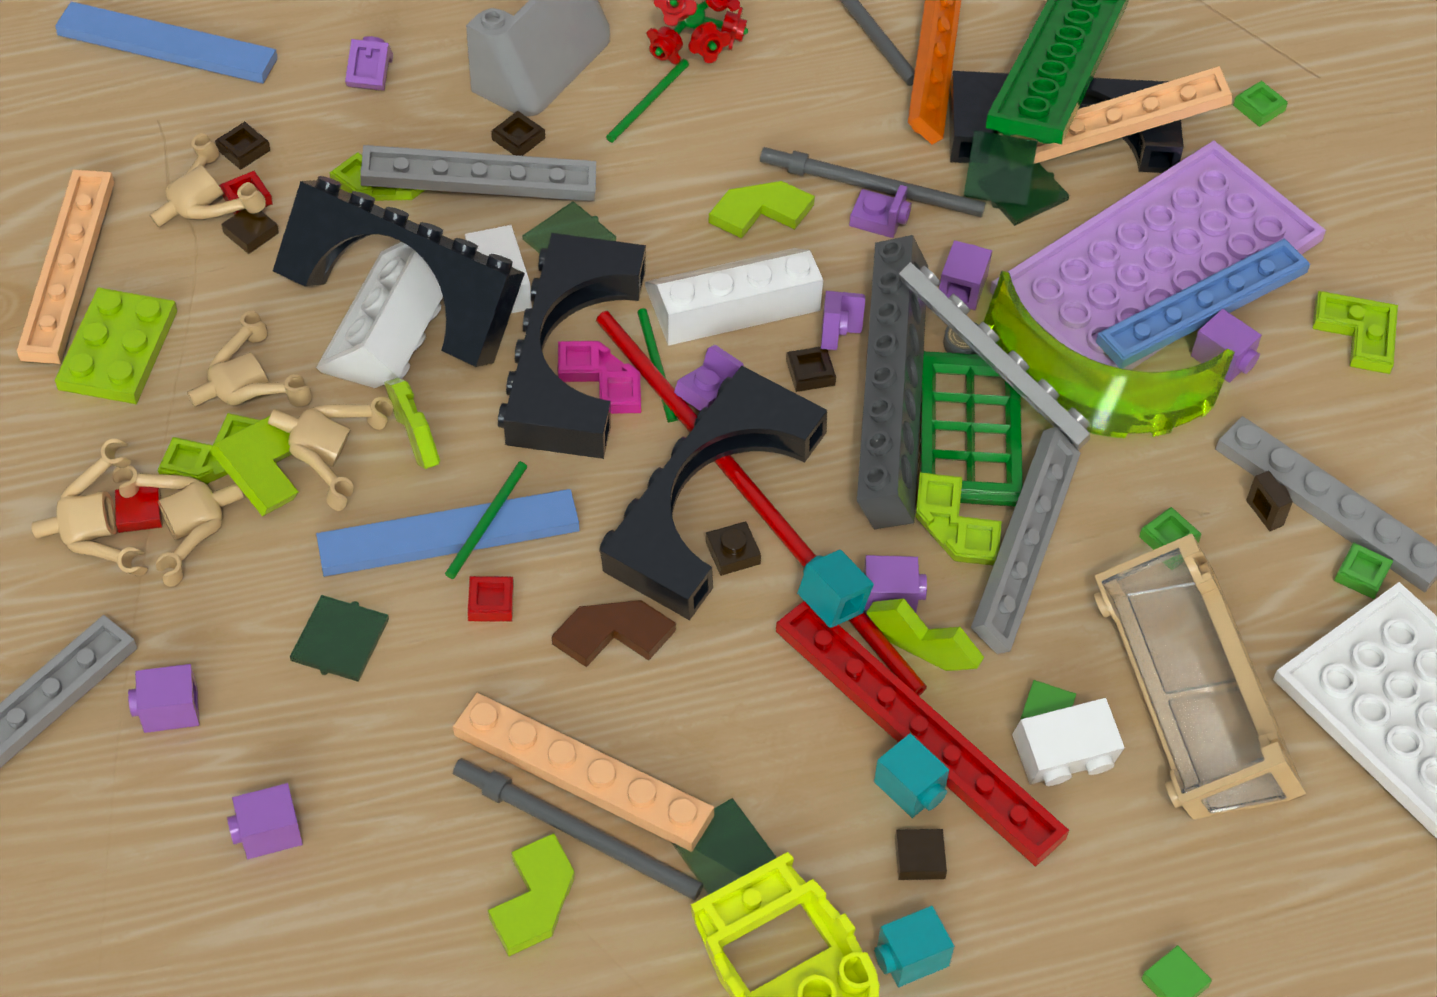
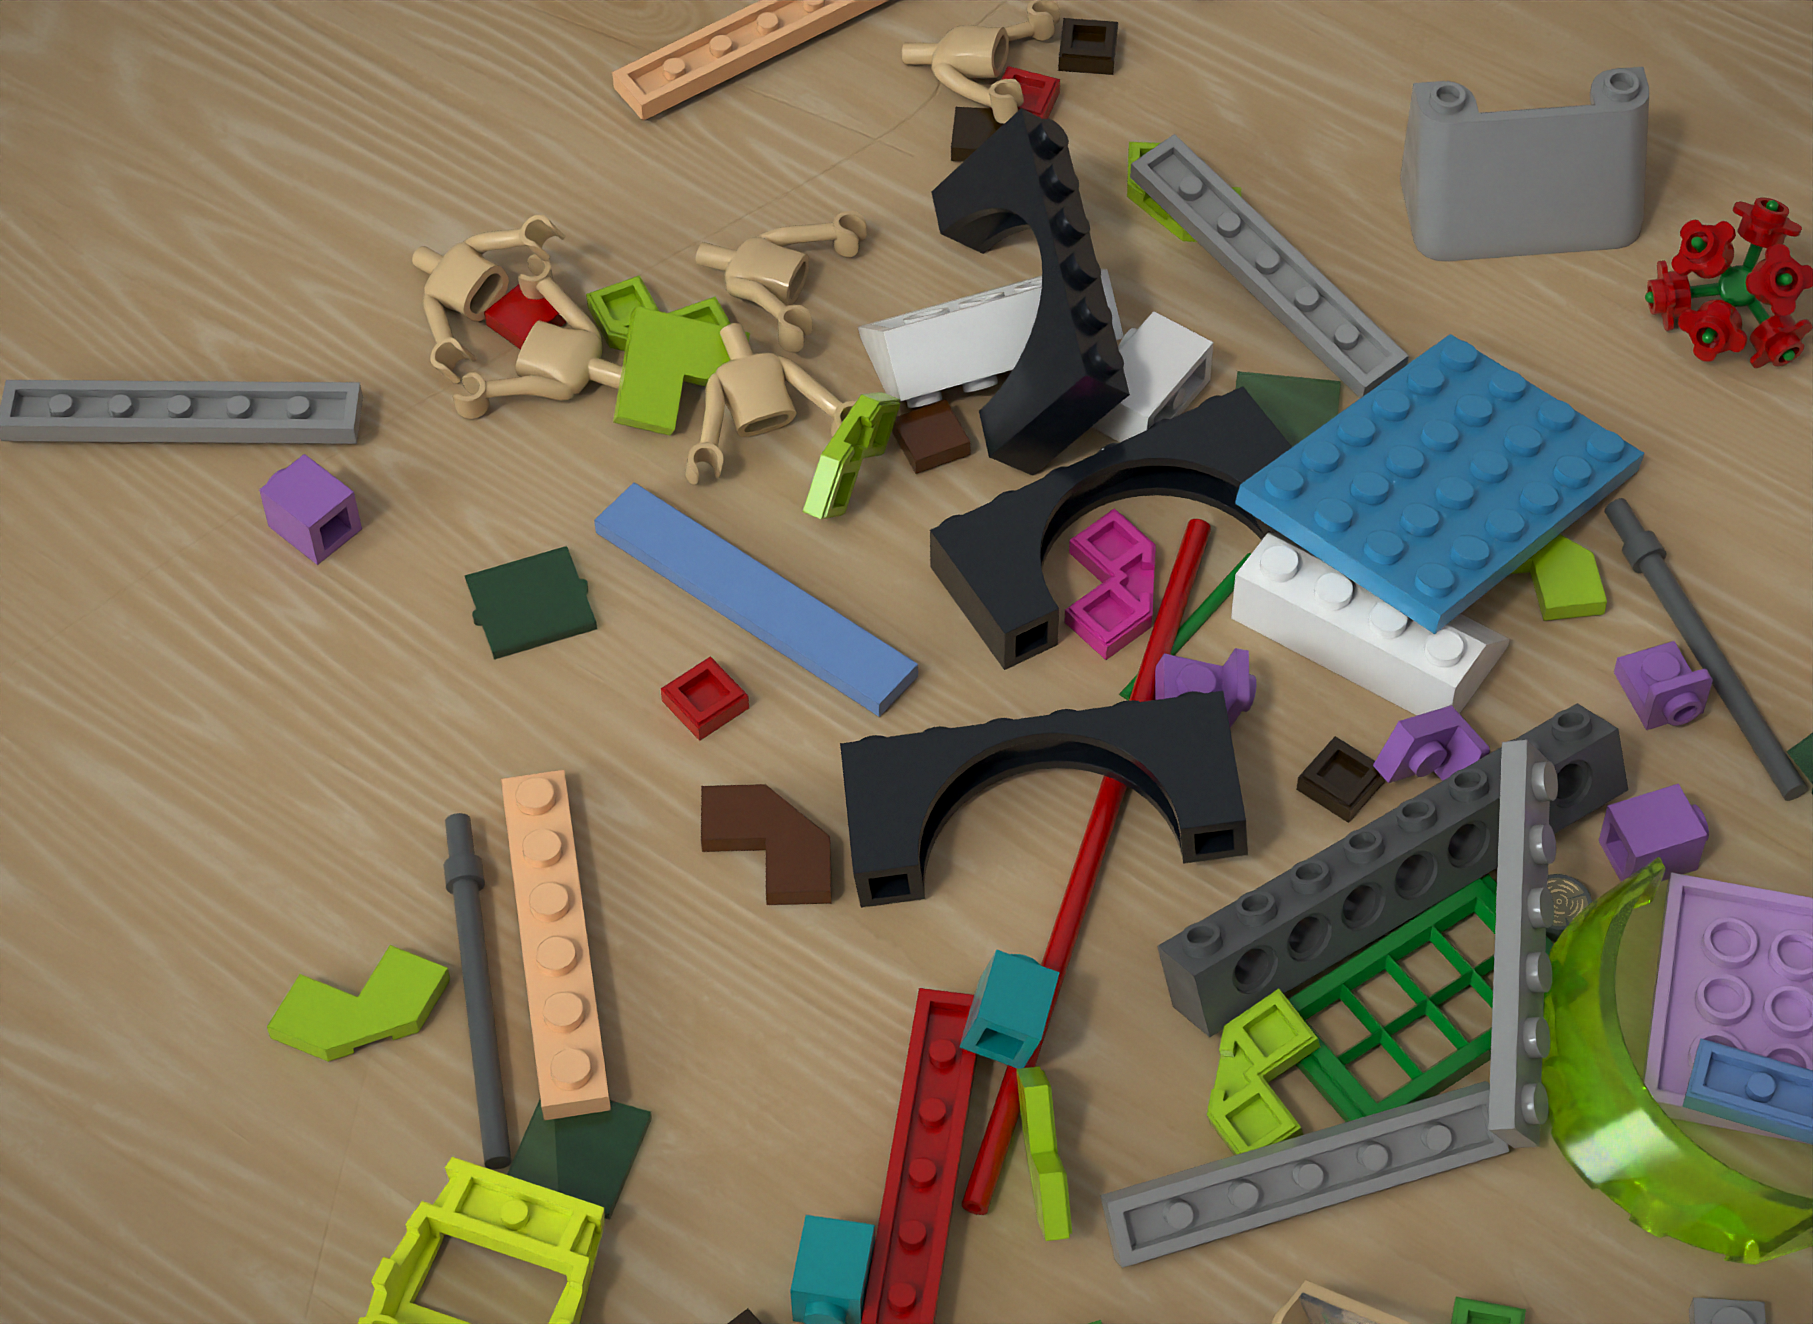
camera: 55 degrees right, 0 degrees up
(116, 345) = (713, 146): lime plate -> none
(265, 821) = (238, 700): medium lavender brick -> none
(368, 63) = (1318, 59): medium lavender bracket -> none
(429, 384) = (931, 436): none -> reddish brown tile
(486, 520) = (794, 615): green axle -> none
(518, 134) = (1380, 263): dark brown tile -> none
(646, 101) = (1575, 343): green axle -> none
(690, 201) = (1440, 481): none -> dark azure plate
(733, 548) = (996, 879): dark brown plate -> none
(895, 579) = (1089, 1073): medium lavender brick -> none

